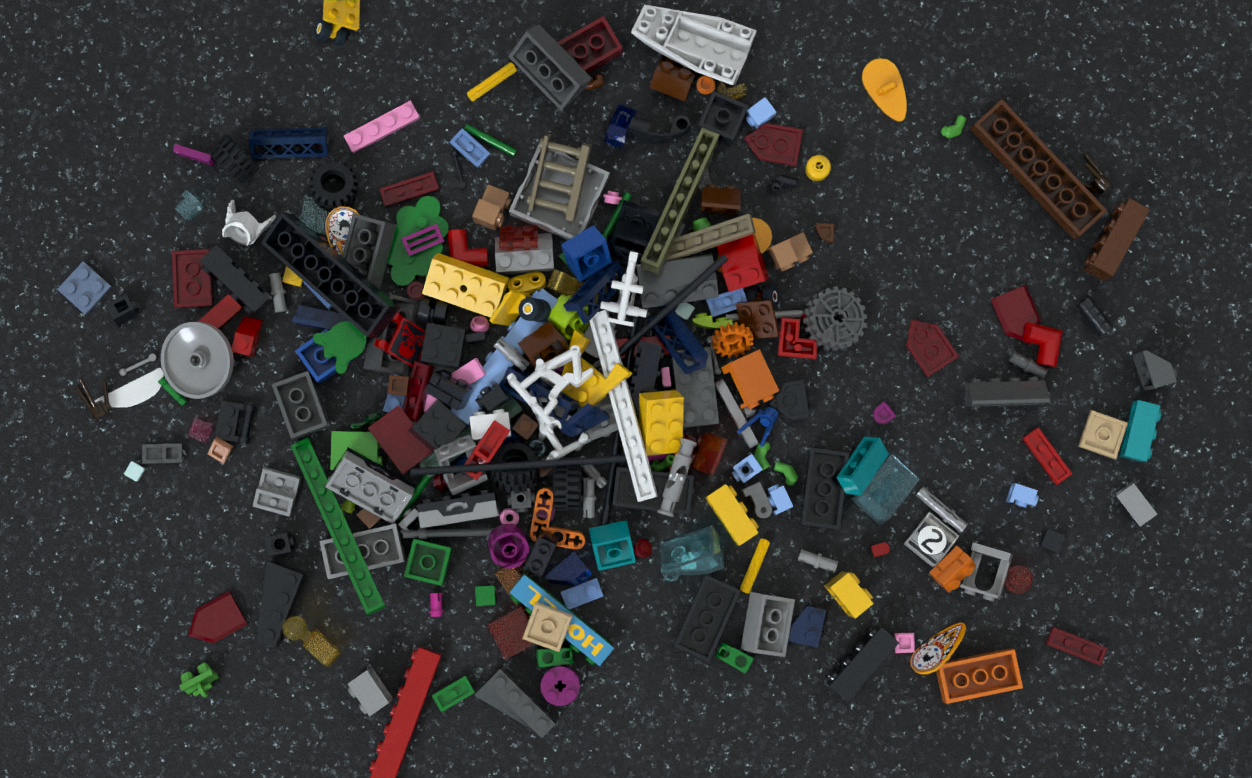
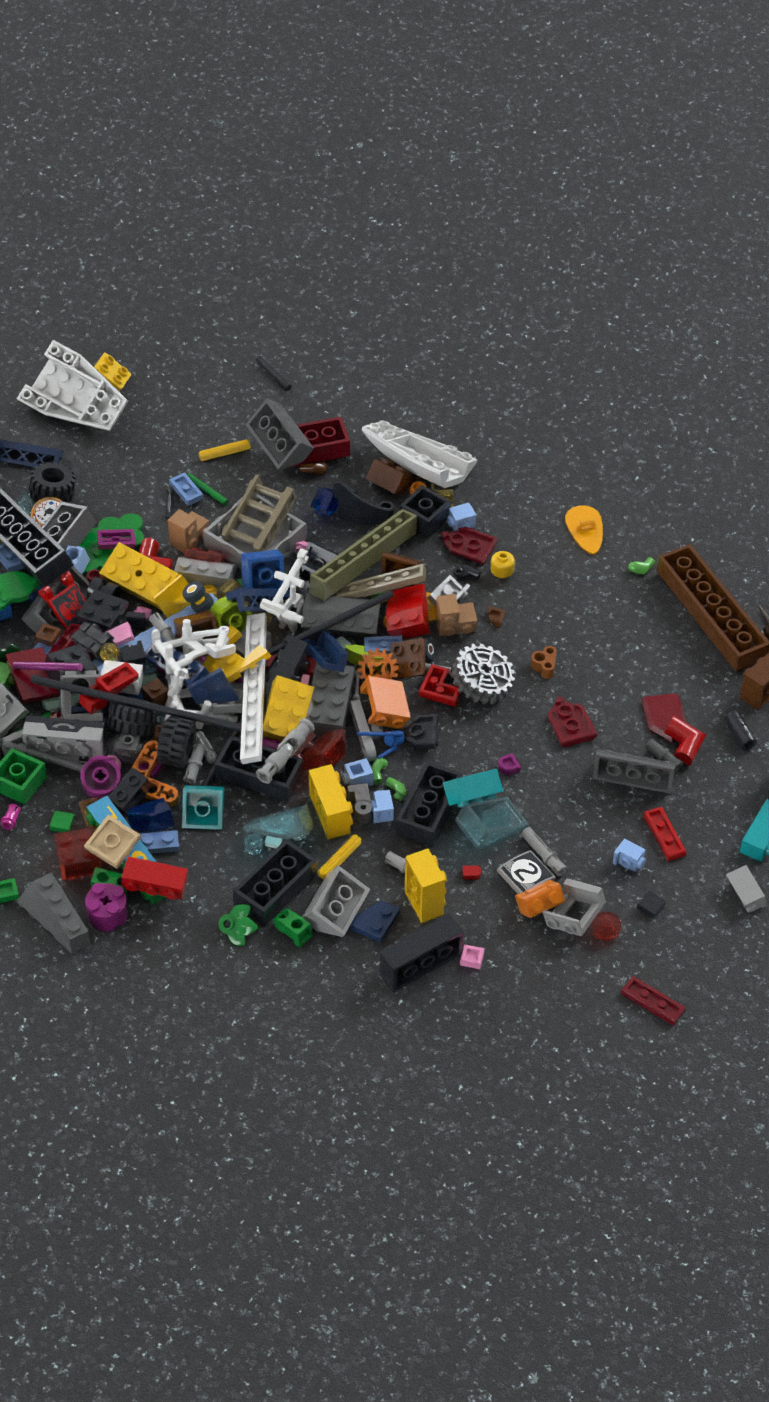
camera: 15 degrees right, 35 degrees down
(311, 54) = (73, 391): none -> white wedge
(381, 127) = (113, 461): bright pink plate -> none
(385, 286) = (79, 557): none -> light blue brick
(409, 189) = (119, 507): dark red tile -> none
(417, 441) = (48, 666): none -> magenta bar
(471, 406) = (109, 652): none -> clear yellow plate
(599, 655) = (154, 878): none -> red brick
(642, 548) = (232, 816): dark red plate -> none
(685, 671) = (240, 924): none -> green plate
(774, 221) = (448, 587): none -> light grey bracket
(893, 279) = (547, 661): none -> dark orange piece
(937, 649) = (502, 964): shield -> none
(979, 676) = (540, 994): orange brick -> none
(1103, 434) = (725, 826): tan plate -> none

